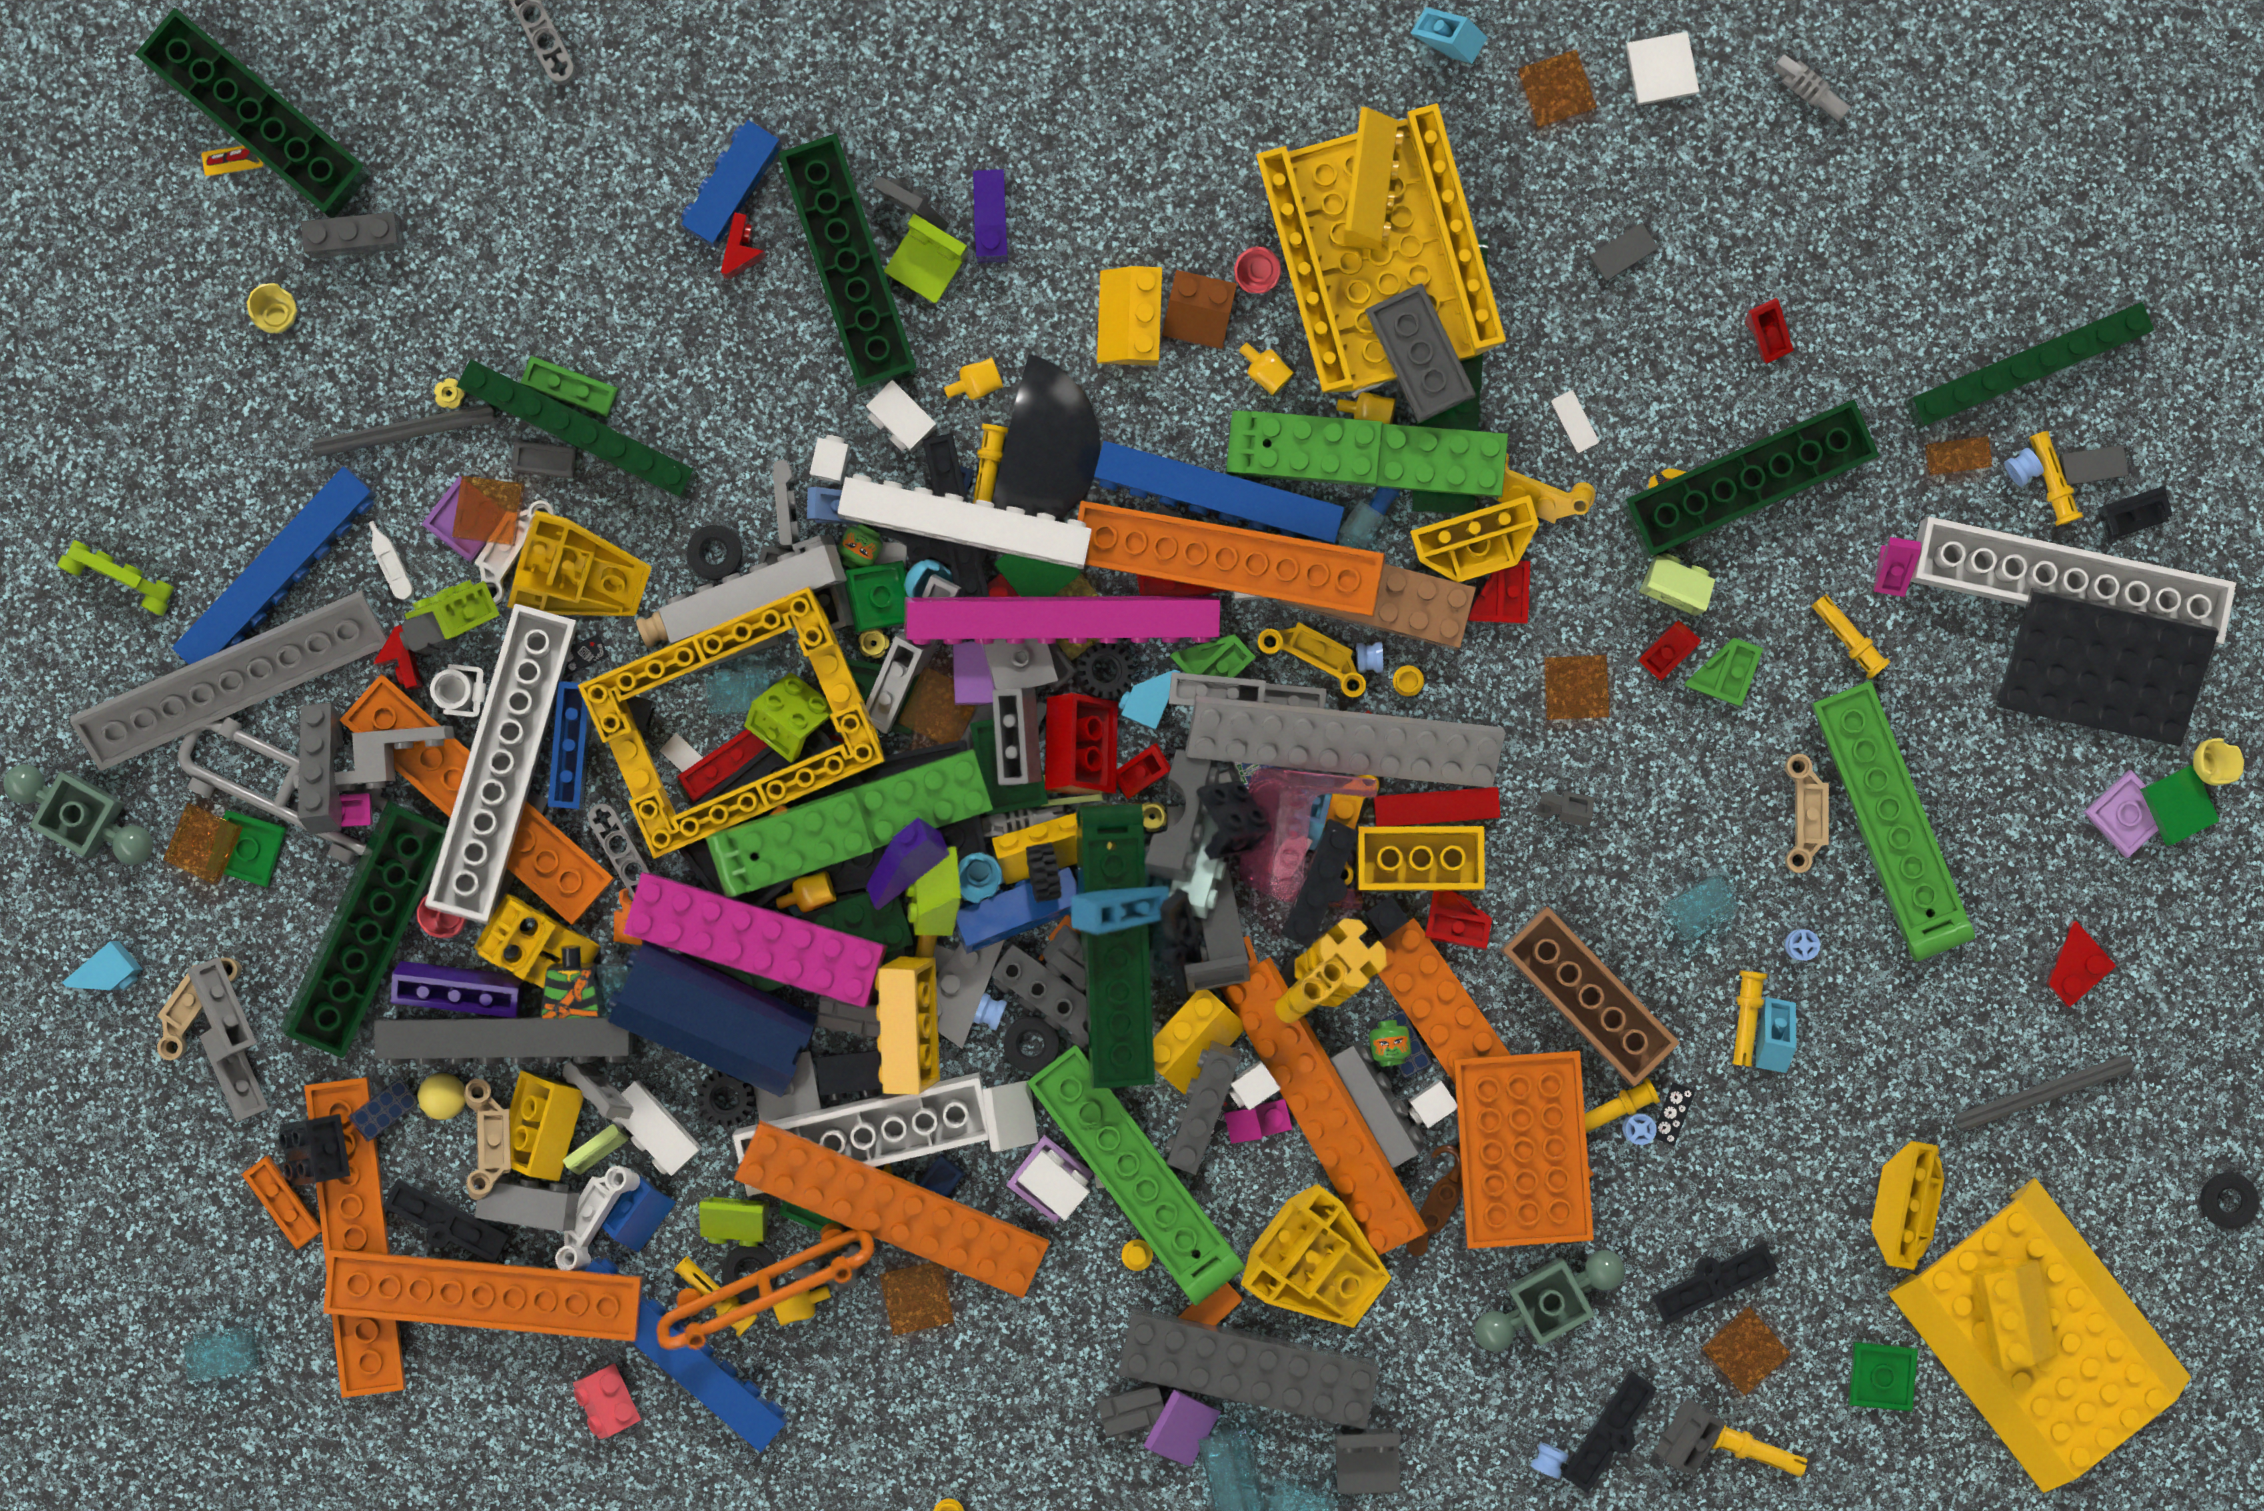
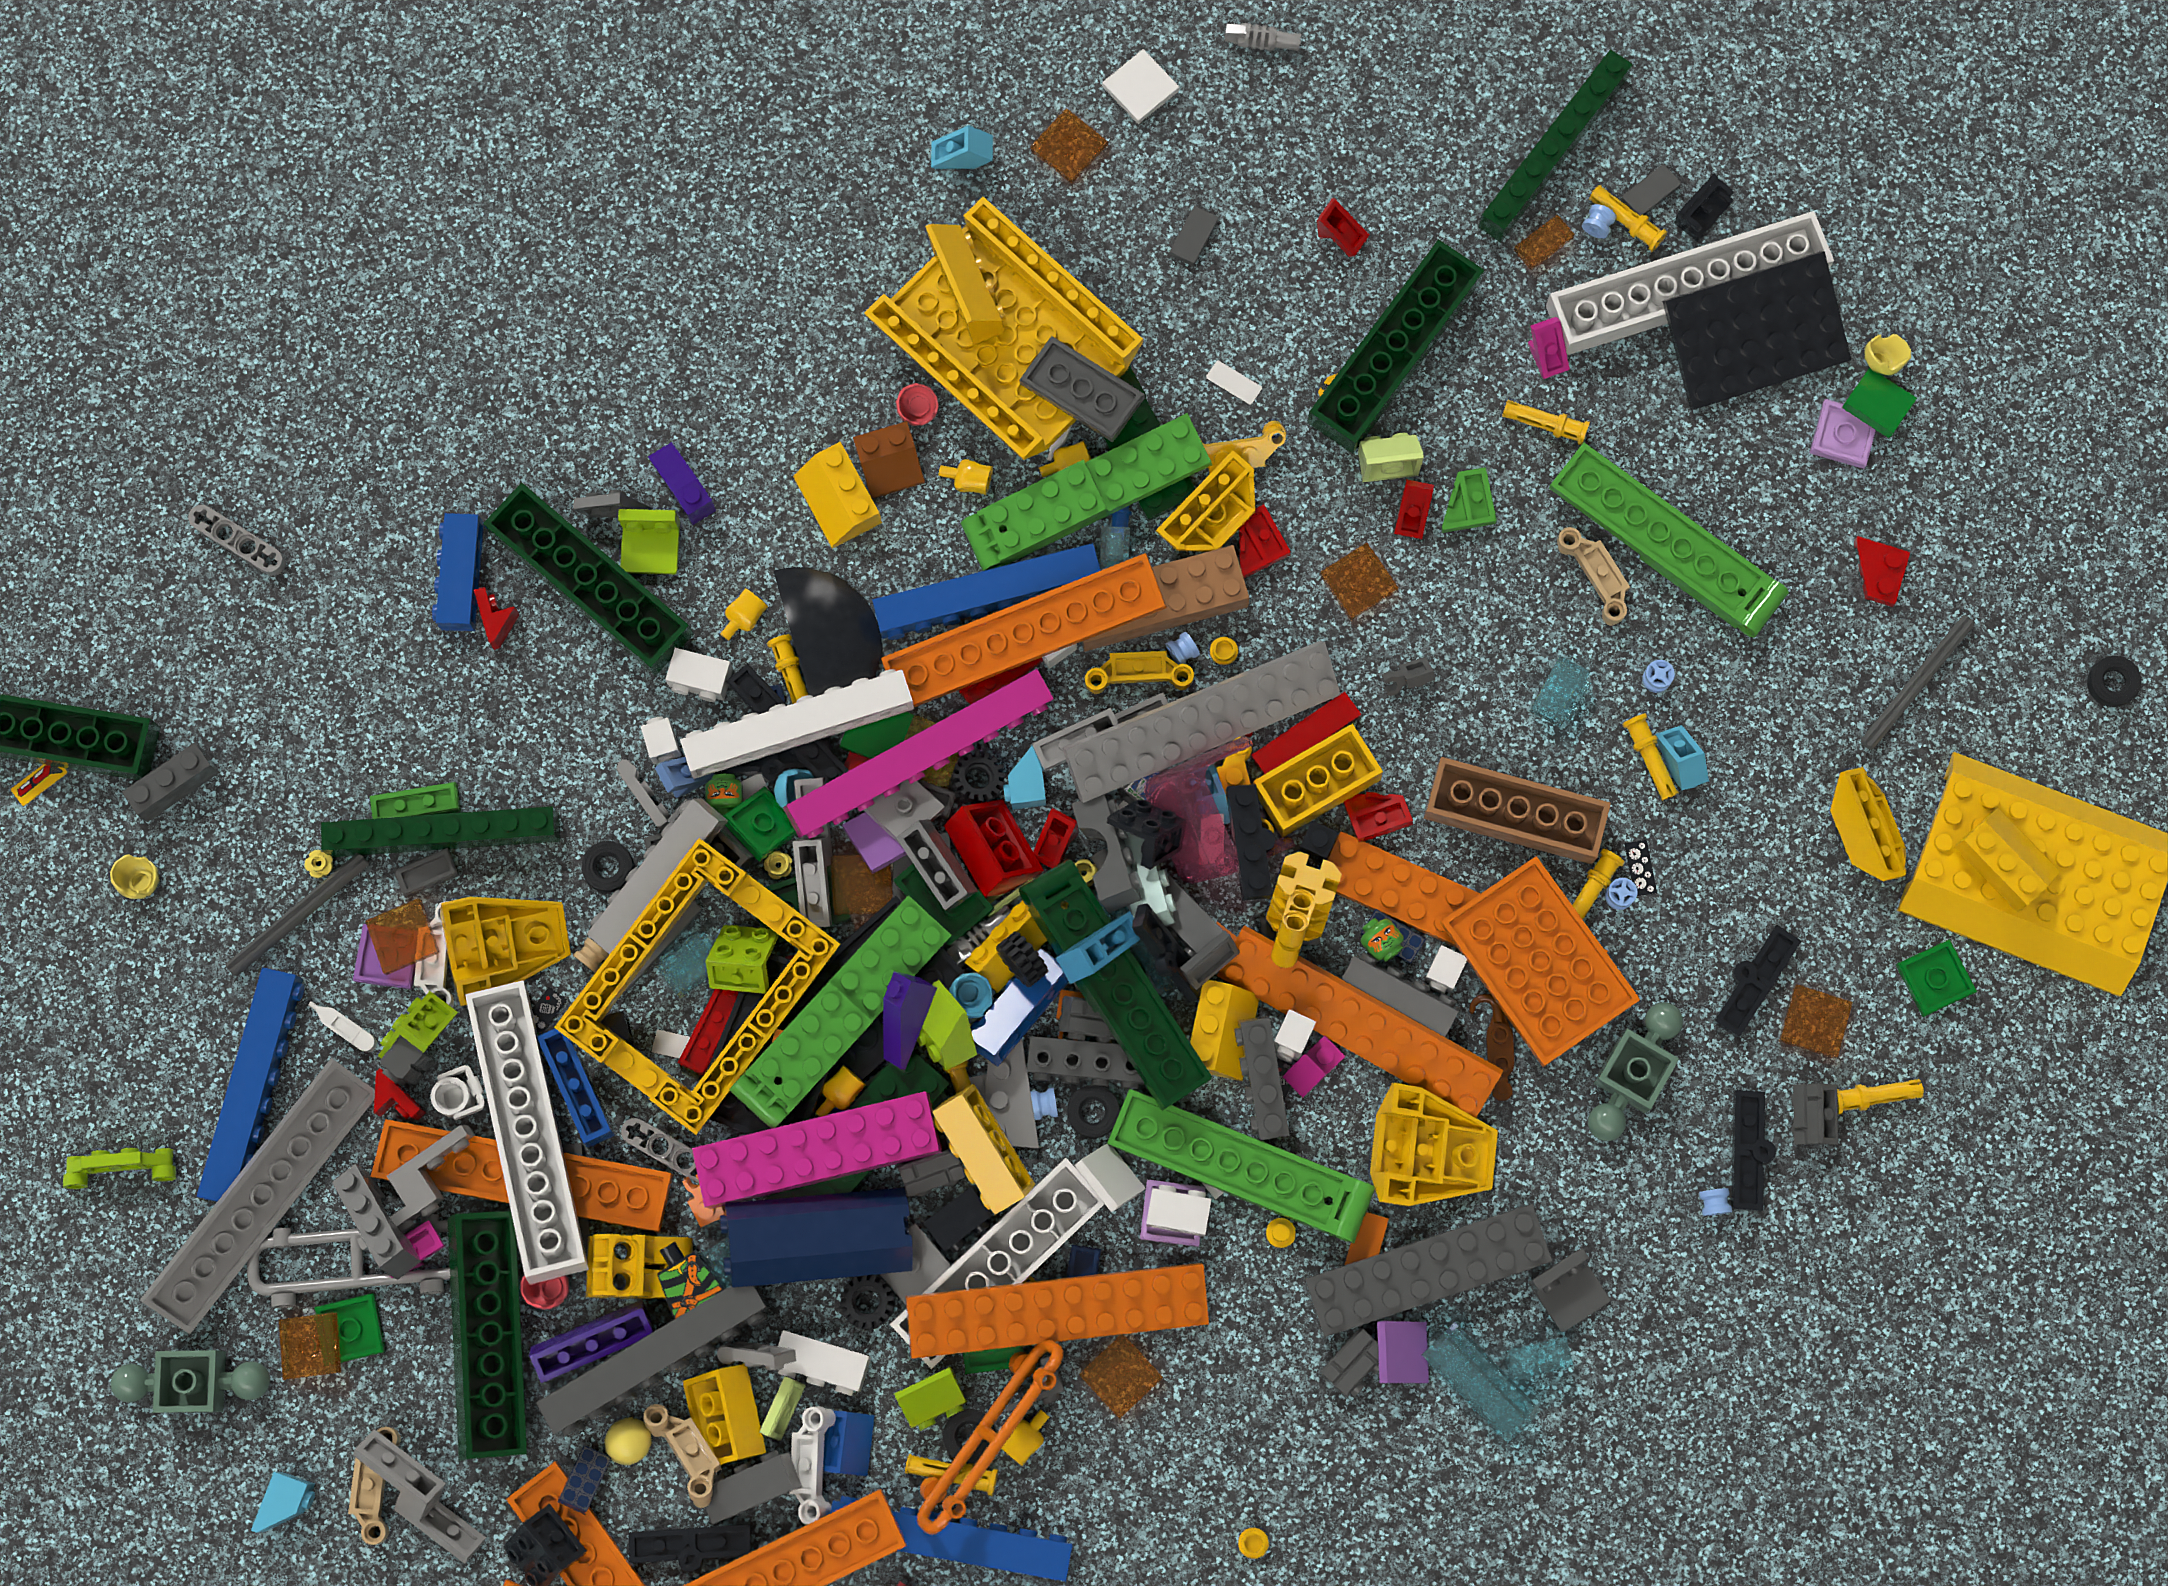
camera: 30 degrees left, 10 degrees down
(1215, 658) = (1064, 713): bright green wing -> none

